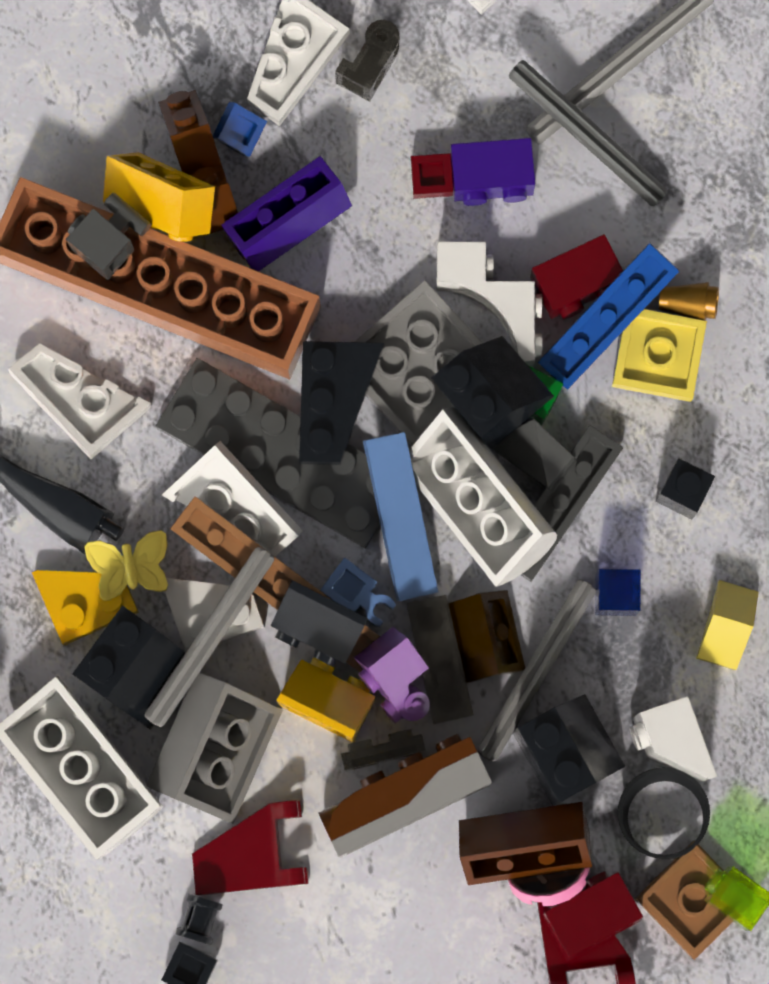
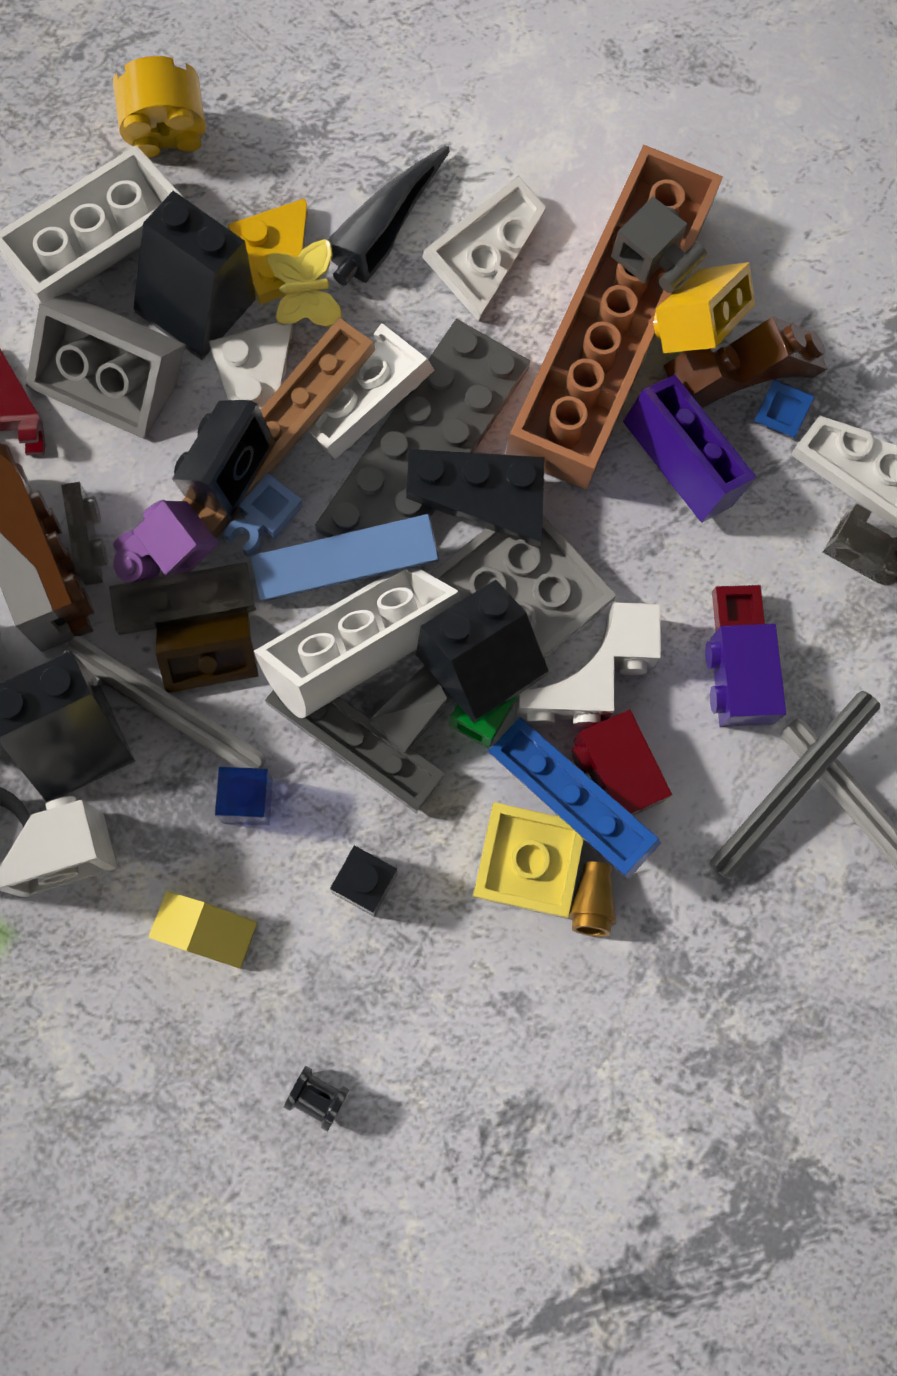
camera: 80 degrees right, 5 degrees down
(209, 637) = (220, 353): light grey axle -> none
(327, 699) = (134, 465): yellow slope -> none

